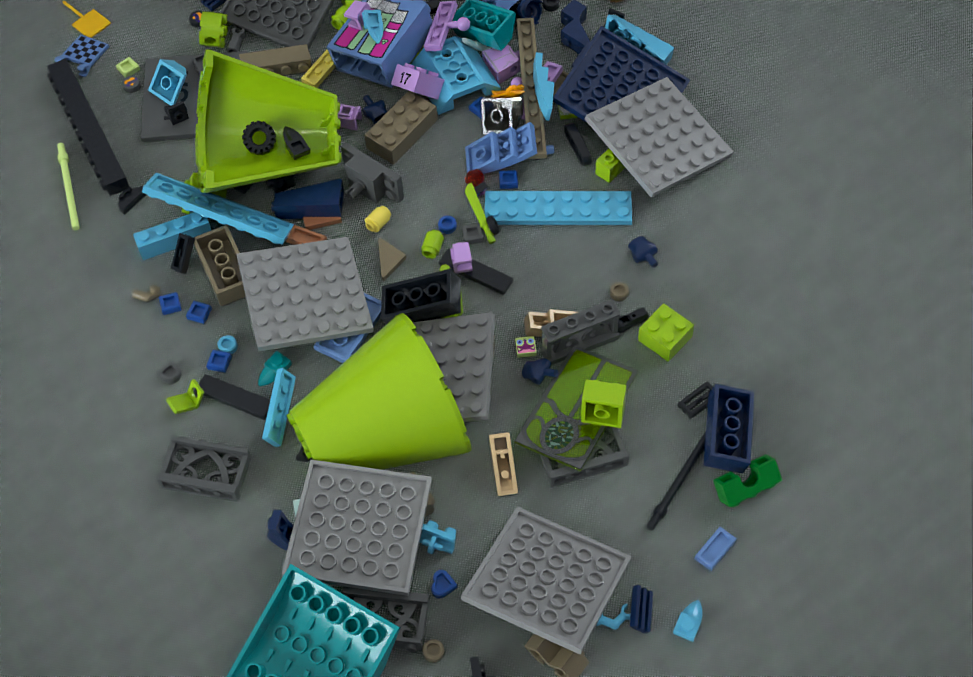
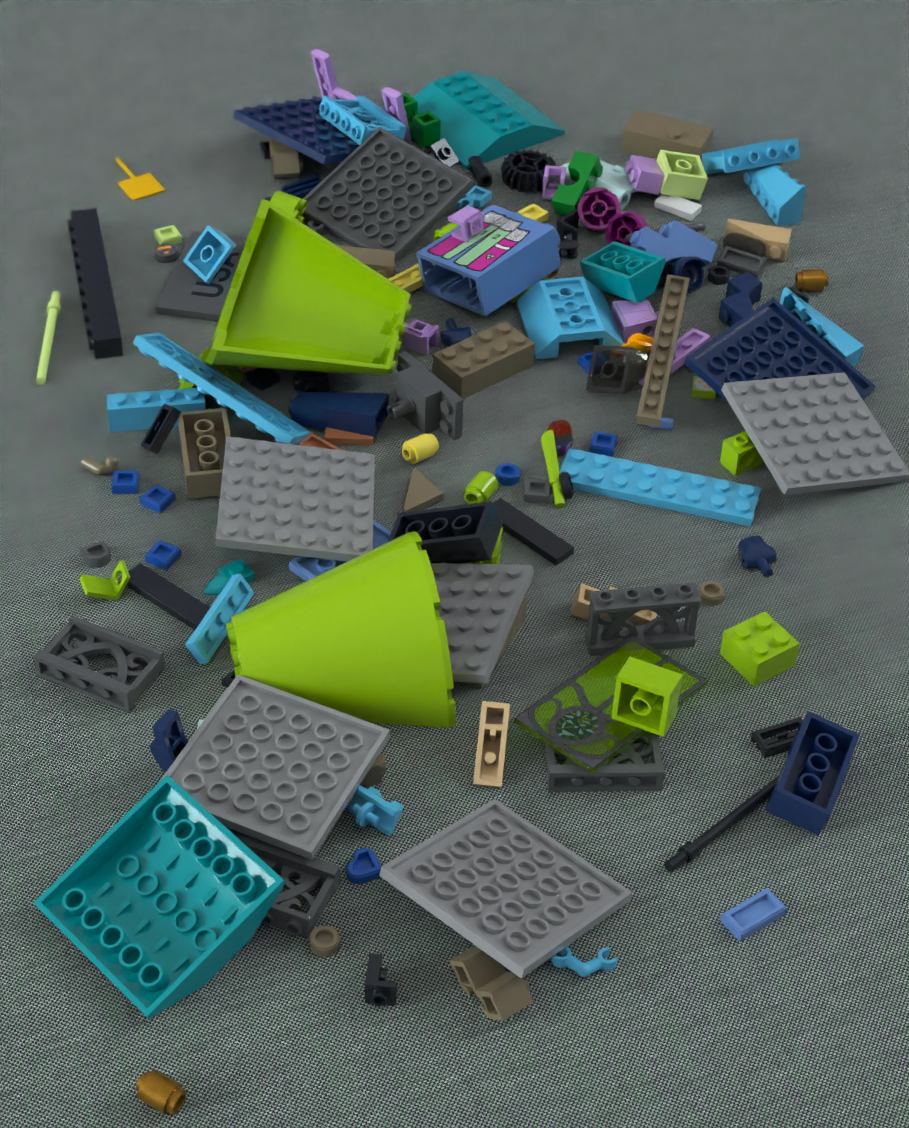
camera: 10 degrees right, 15 degrees down
(84, 52) = (122, 212): medium blue flag -> none
(130, 198) = (120, 364): black tile -> none
(177, 113) = (209, 287): black bracket -> none
(227, 344) = (182, 539): medium azure tile -> none
(267, 145) = (304, 337): black tyre -> none
(295, 143) = (342, 342): black plate -> none
(373, 22) = (482, 233): medium azure plate -> none
(418, 80) = (520, 311): lavender brick -> none
(442, 23) = (569, 259): lavender plate -> none
(461, 257) = (513, 507): lavender window -> none
(475, 44) = (605, 293): light aqua piece -> none
(501, 149) = (605, 407): medium blue slope -> none
(525, 346) = (566, 626): tile -> none
(537, 370) = (573, 651): dark blue piece -> none
(543, 88) = (678, 346): medium azure slope -> none
(577, 144) = (705, 424): black beam -> none
(633, 318) = (714, 627): black bar -> none
(641, 609) = (629, 962): dark blue tile -> none
(689, 621) = (689, 993): medium azure plate -> none
(763, 475) = (846, 838): green arch -> none

